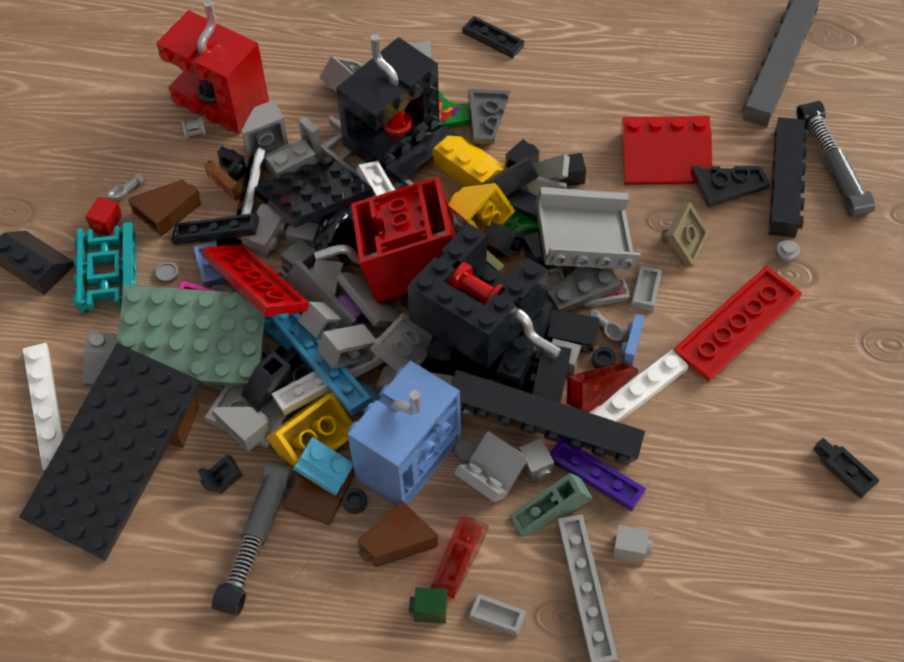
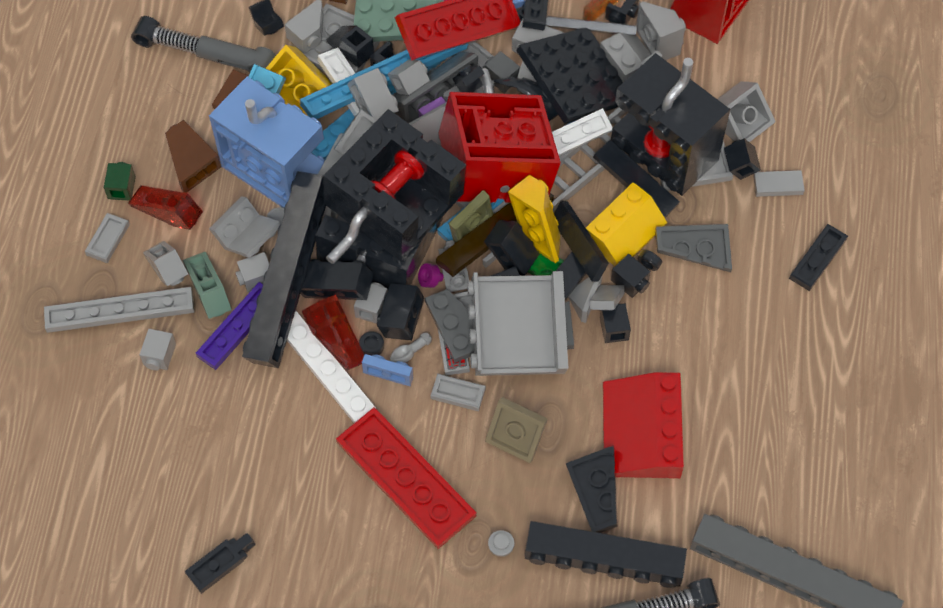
camera: 90 degrees right, 5 degrees up
(324, 266) = (469, 78): none -> black bracket
(451, 114) = (702, 201): green tile -> none
(505, 145) = (649, 260): none -> black tile
(528, 547) = (166, 263): none -> light grey slope

